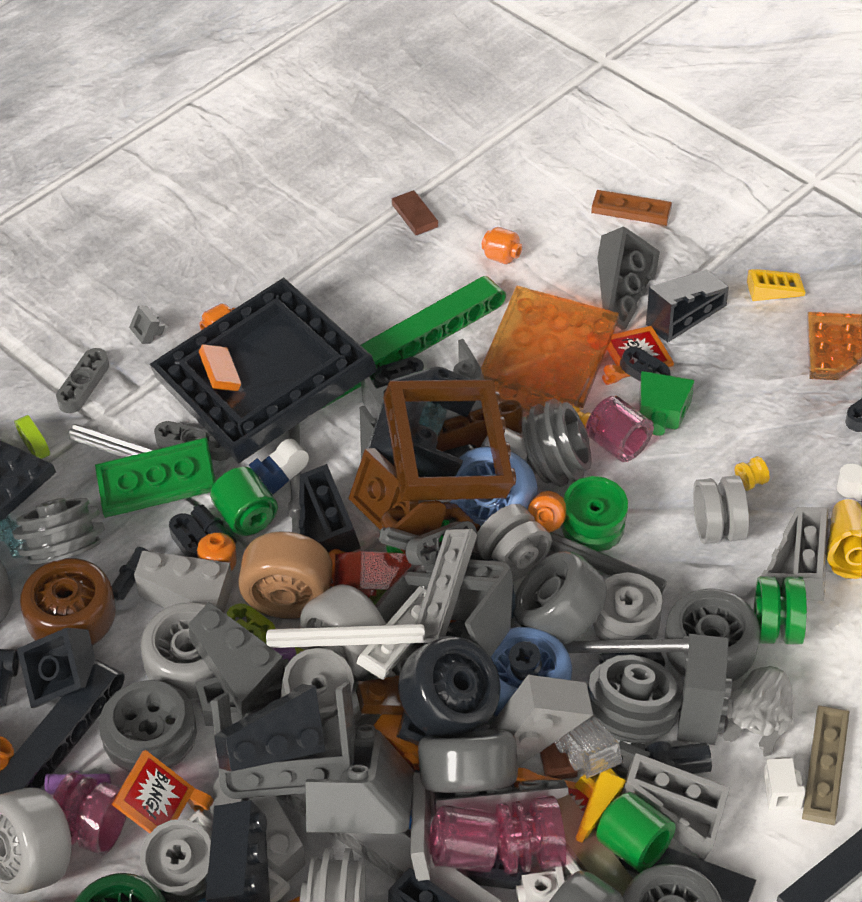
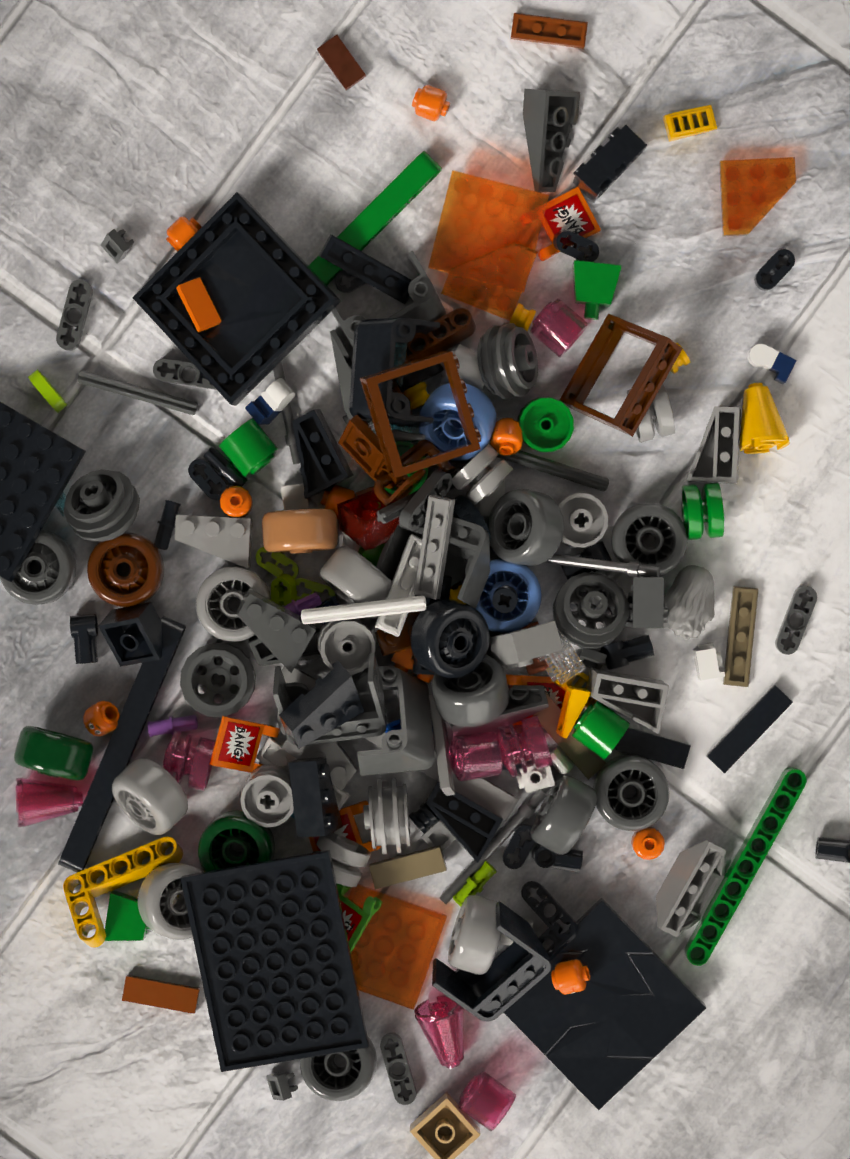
camera: 15 degrees left, 40 degrees up
(155, 477) = (166, 424): green tile -> none
(396, 348) = (366, 268): none -> black tile
(721, 440) = (645, 386): none -> reddish brown window

